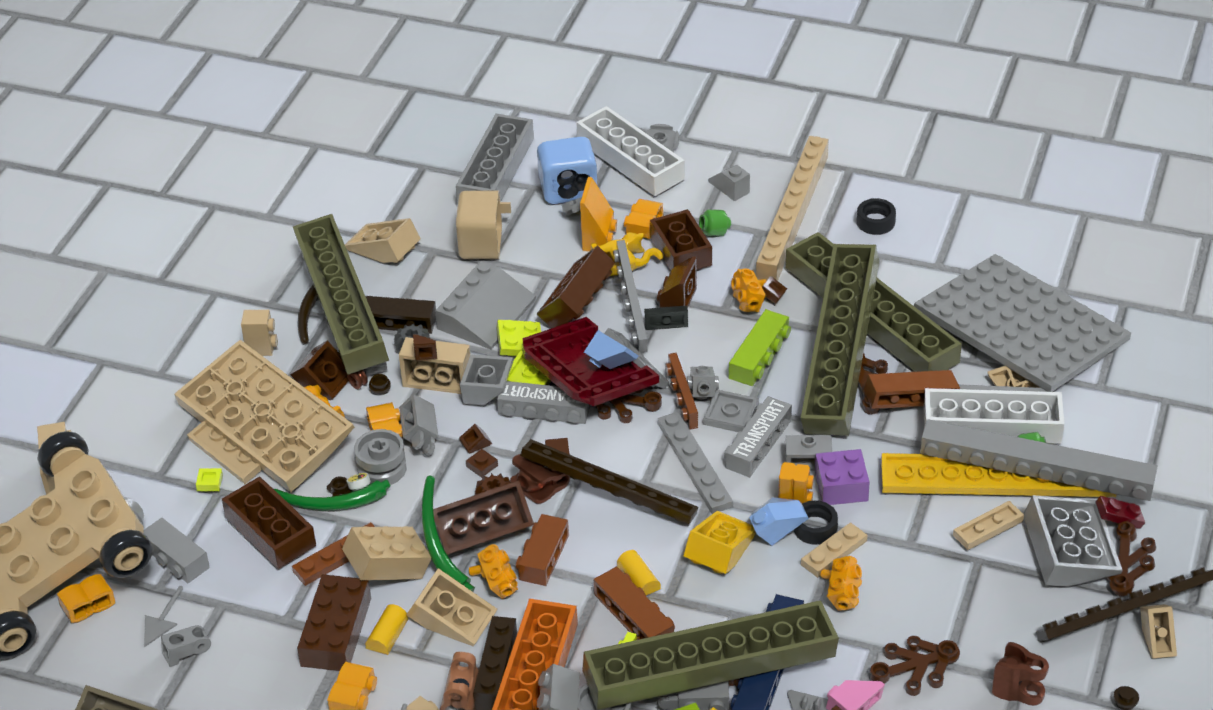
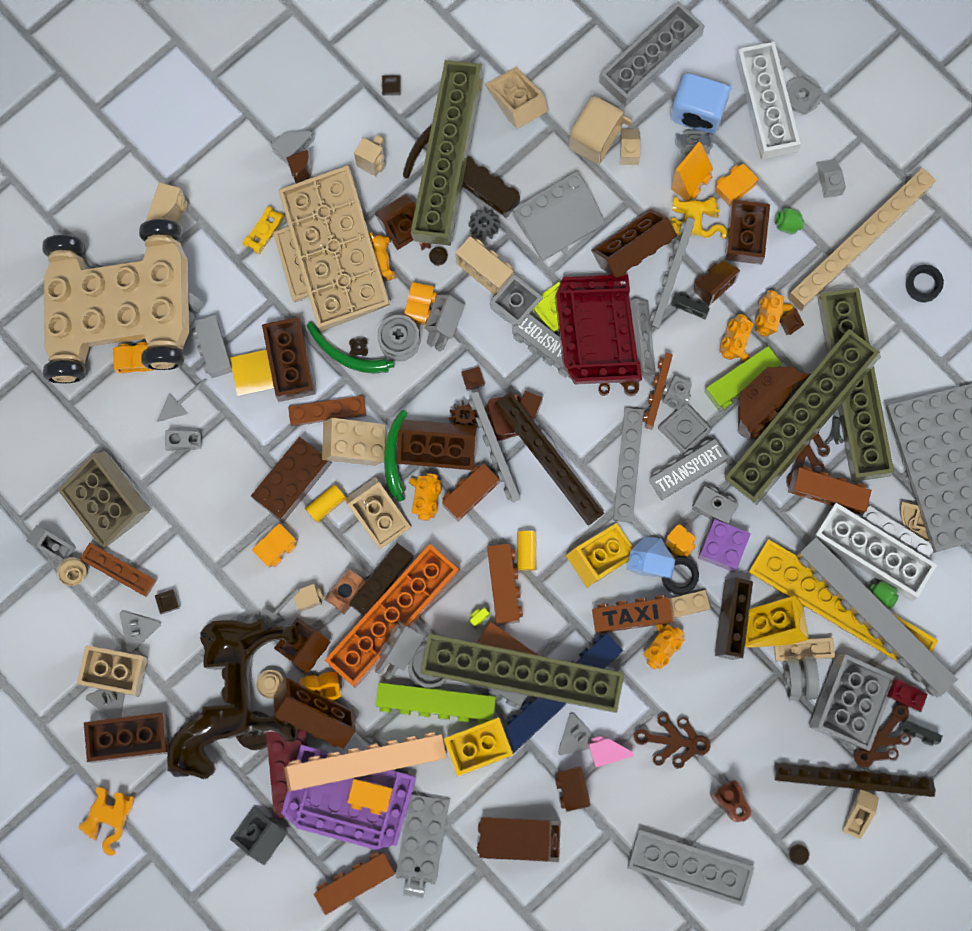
camera: 30 degrees right, 35 degrees up
(167, 361) = (291, 144): none -> light grey slope
(175, 439) = (263, 230): none -> yellow plate
(184, 364) = (300, 166): none -> reddish brown brick
(209, 479) = (268, 288): neon yellow plate -> none
(234, 555) = (251, 372): none -> yellow slope
(245, 280) = (391, 85): none -> dark brown plate
(358, 481) = (372, 352): white tile -> none
(424, 348) = (472, 262): reddish brown slope -> none
(475, 439) = (480, 351): reddish brown slope -> none
(511, 335) = (566, 262): neon yellow plate -> none
(522, 234) = (630, 147): none -> tan slope
(545, 495) = (490, 440): none -> light grey plate
(608, 352) = (619, 334): light blue slope -> none
(729, 320) = (736, 337): none -> light orange brick
(792, 568) = (633, 615): none -> dark orange brick
(794, 335) = (765, 398): none -> reddish brown slope
(881, 352) = (835, 434): none -> dark grey bar
(898, 527) = (734, 618): none -> dark brown brick
(943, 511) = (776, 624): none -> yellow slope
(1005, 539) = (801, 678): none -> light grey wheel
(1164, 535) = (928, 737): none -> pearl dark grey plate

